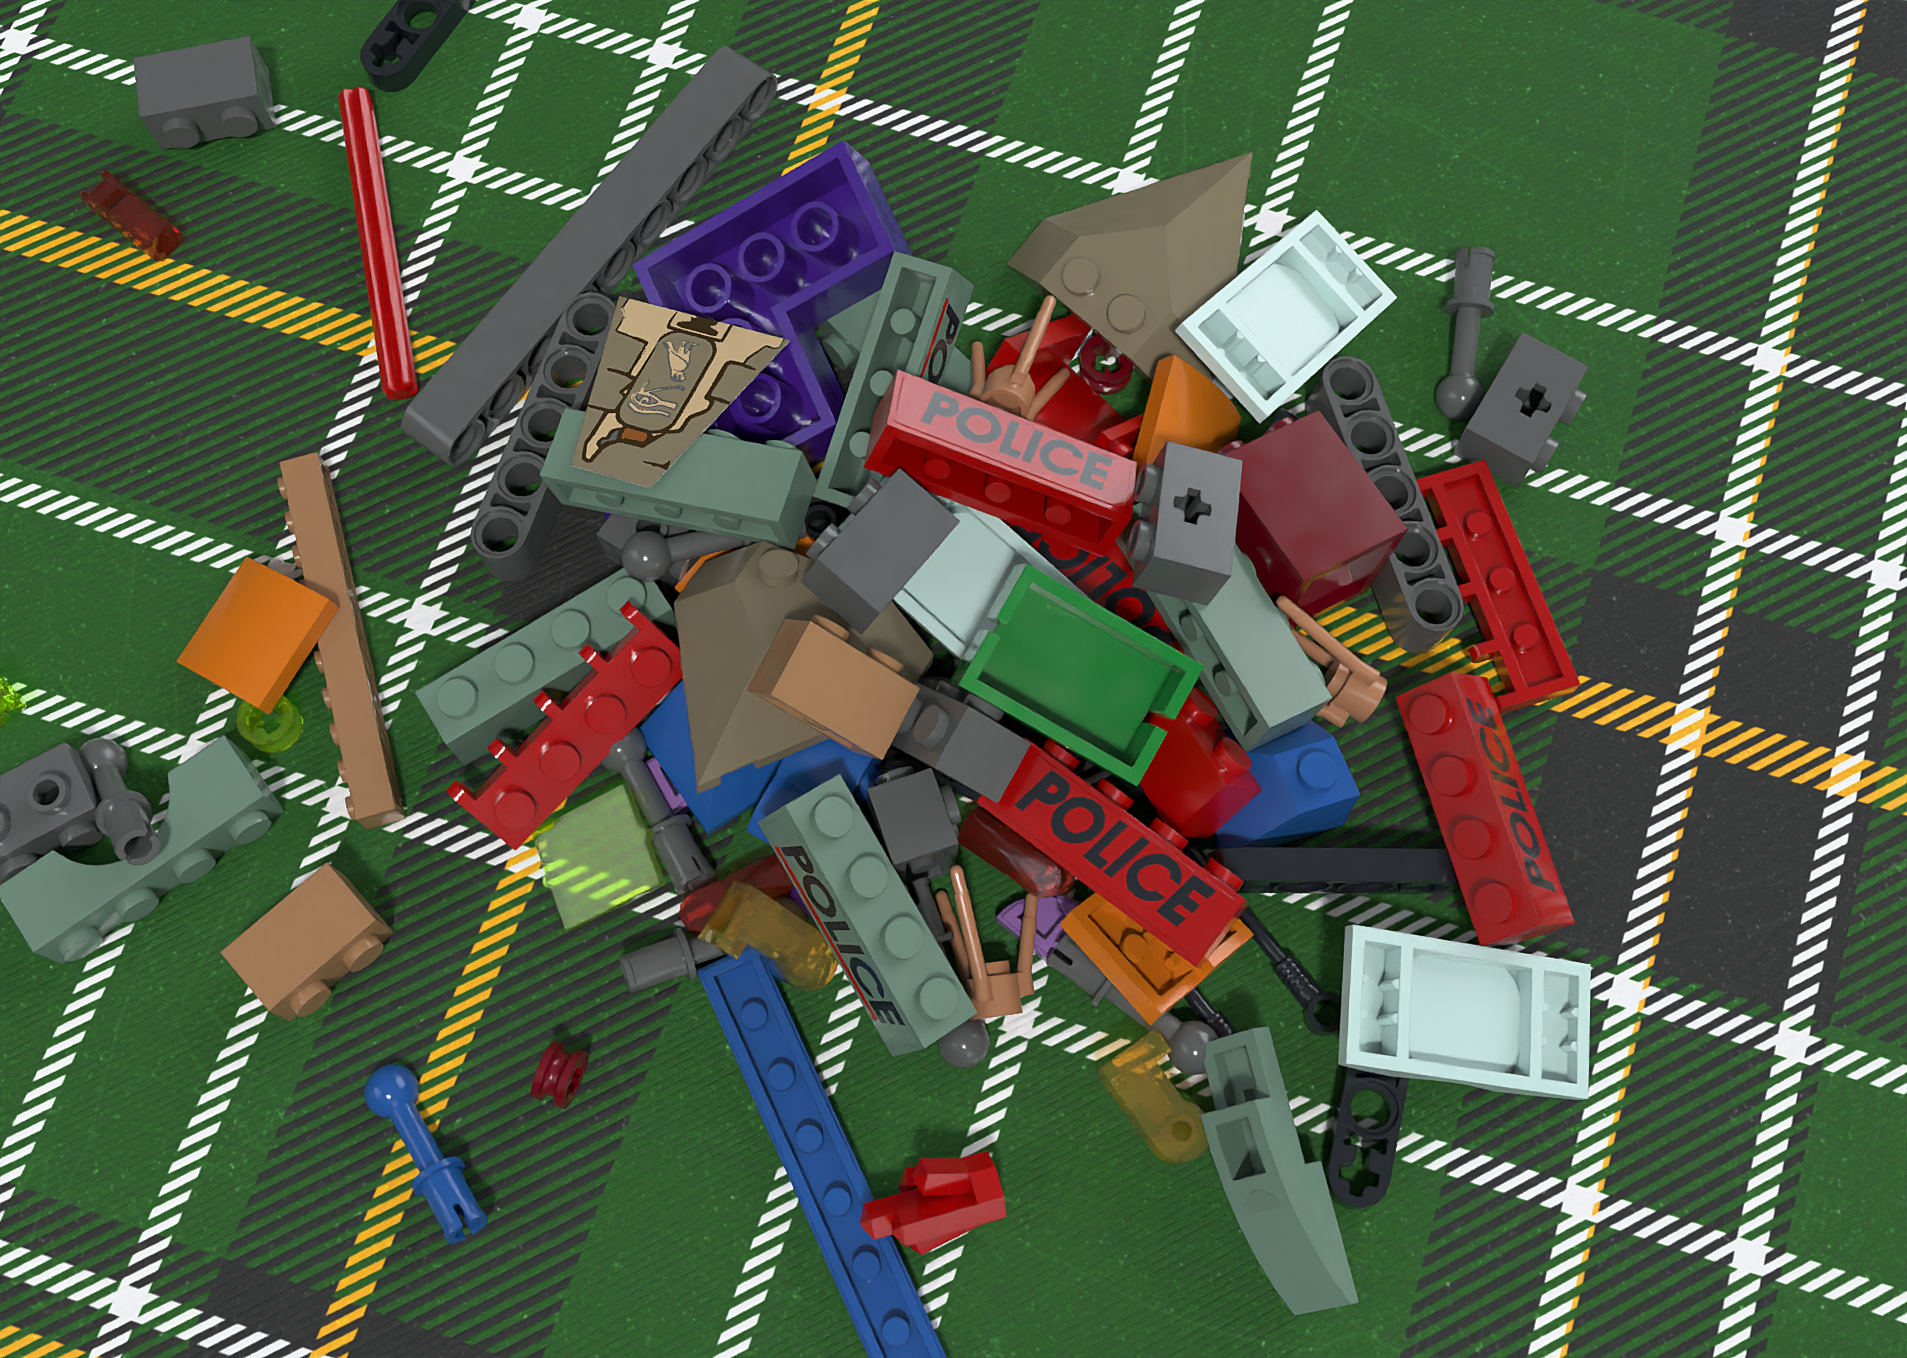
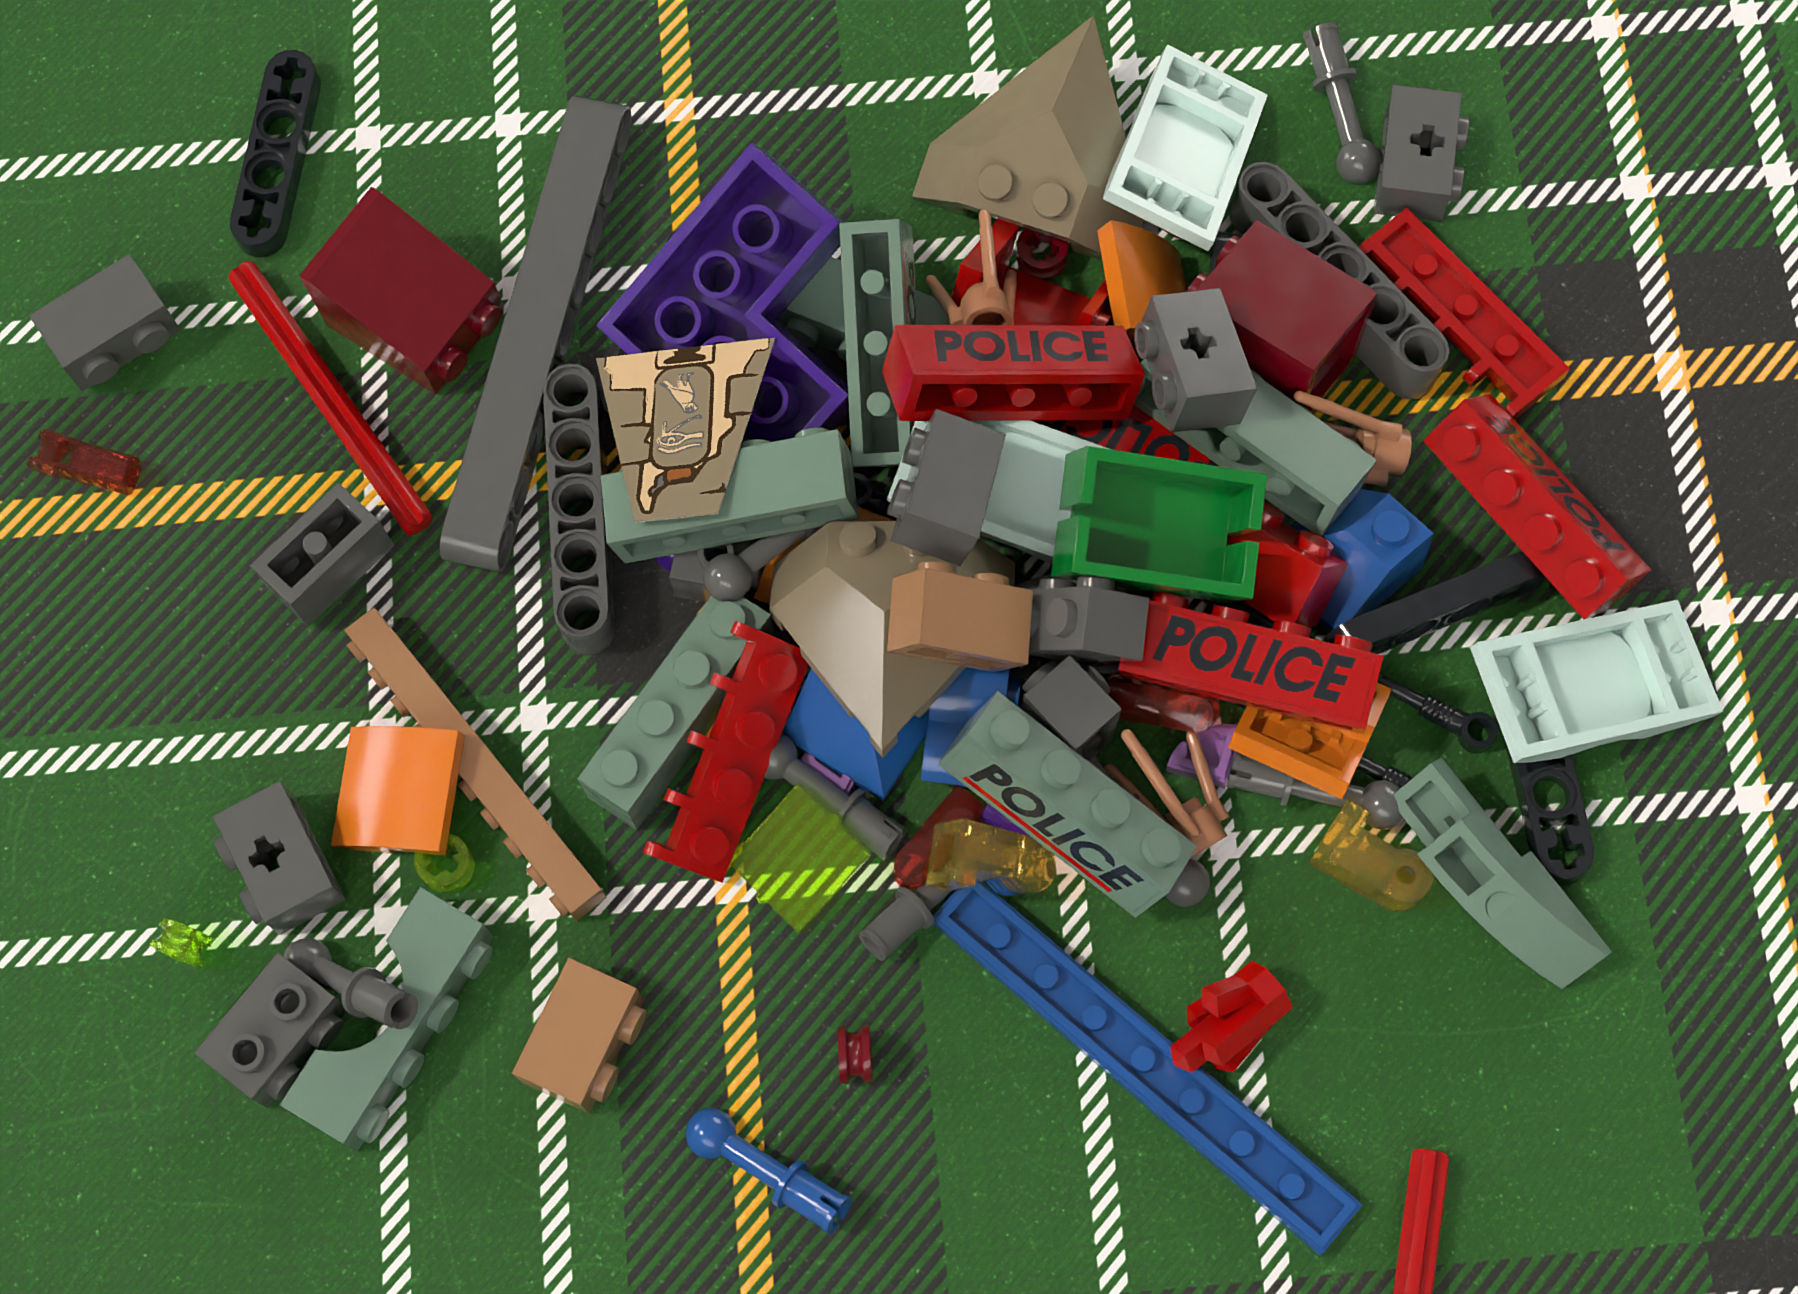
camera: 20 degrees left, 0 degrees up
(117, 653) = (304, 880): none -> dark grey brick
(290, 383) = (322, 554): none -> dark grey brick
(479, 165) = (402, 293): none -> dark red slope

